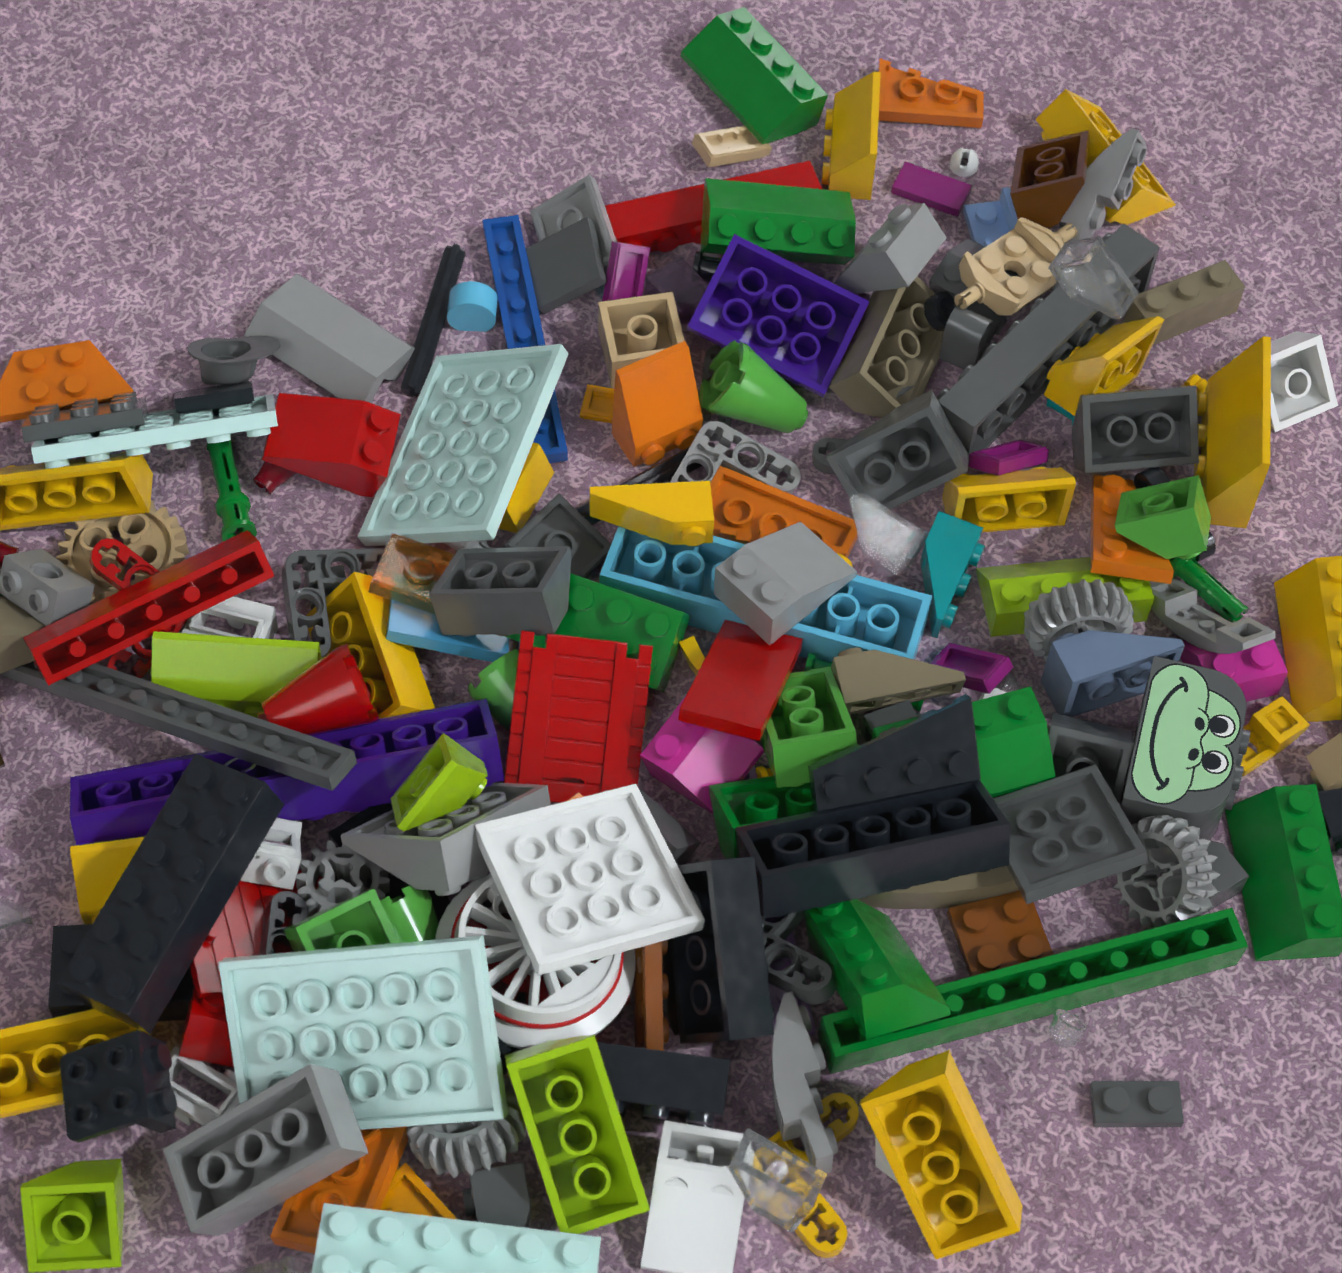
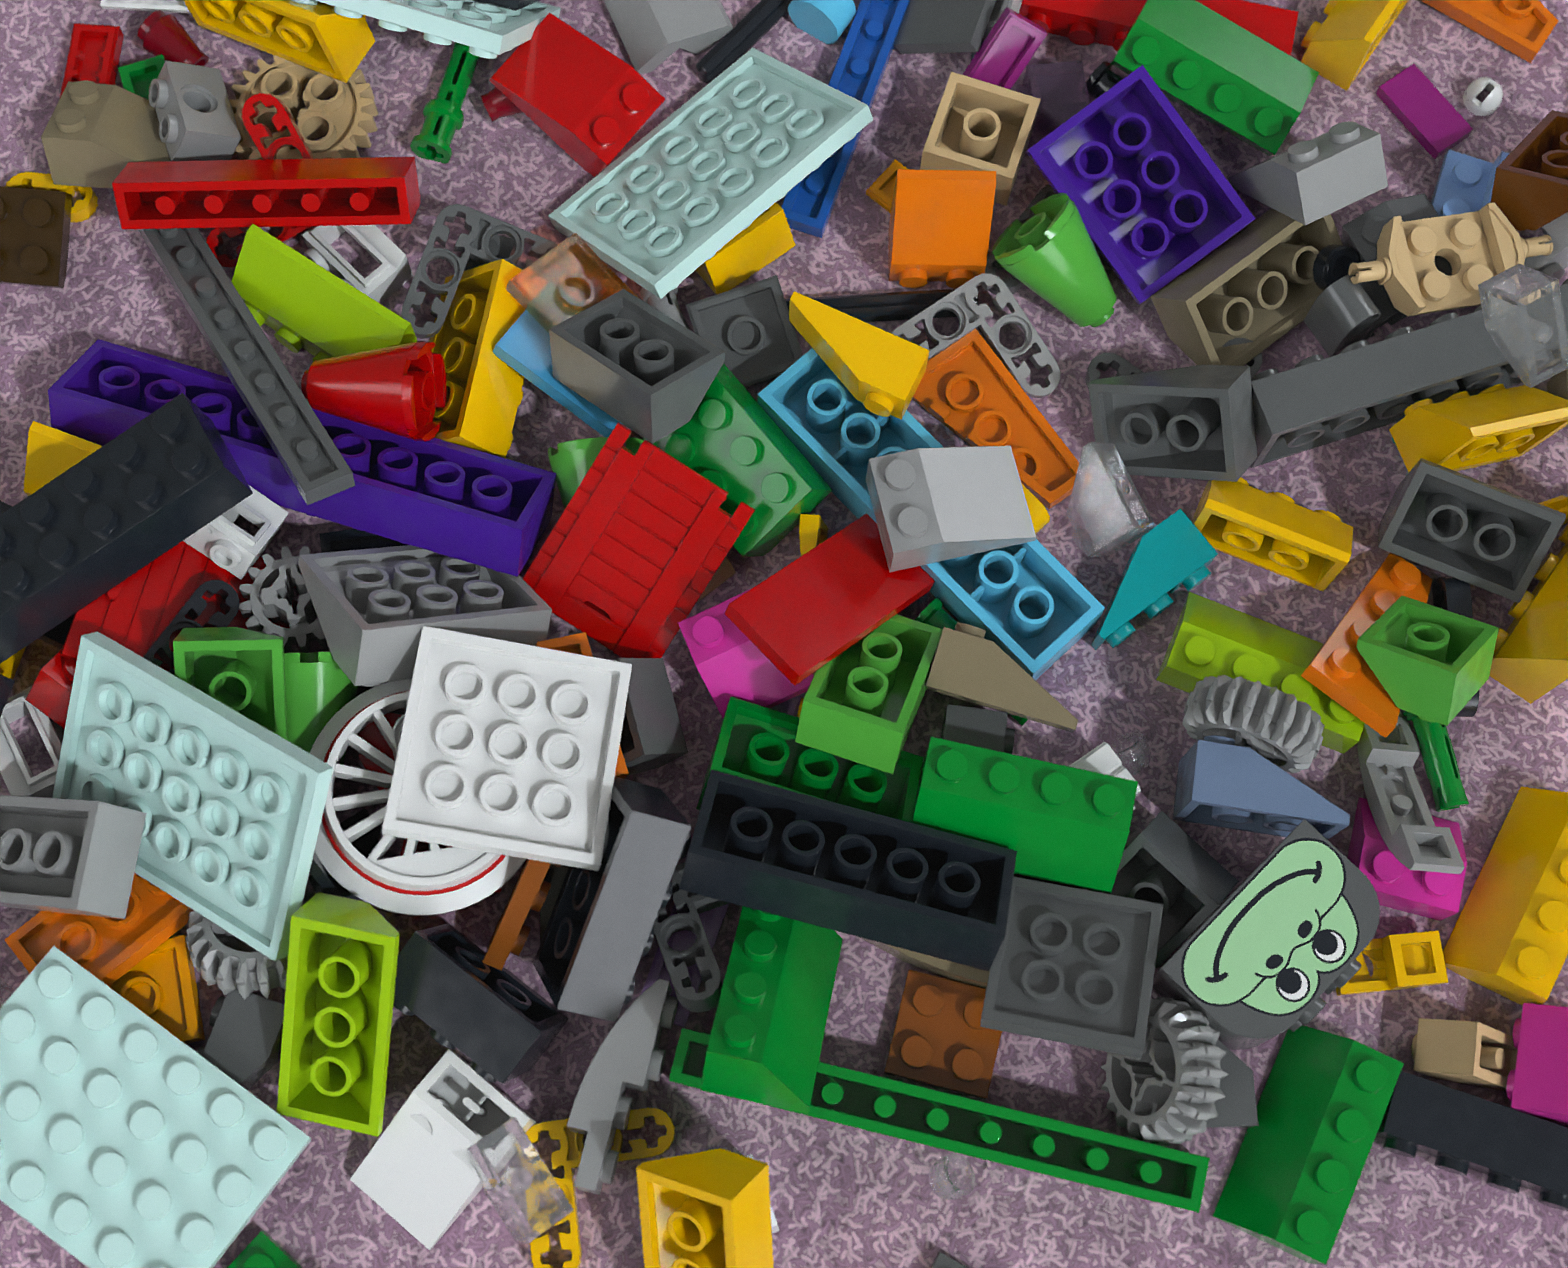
camera: 30 degrees right, 15 degrees up
(438, 784) = (429, 554): lime slope -> none
(917, 757) = (956, 799): black wing -> none
(981, 668) = (1102, 709): magenta tile -> none
(1008, 457) = (1302, 483): magenta tile -> none

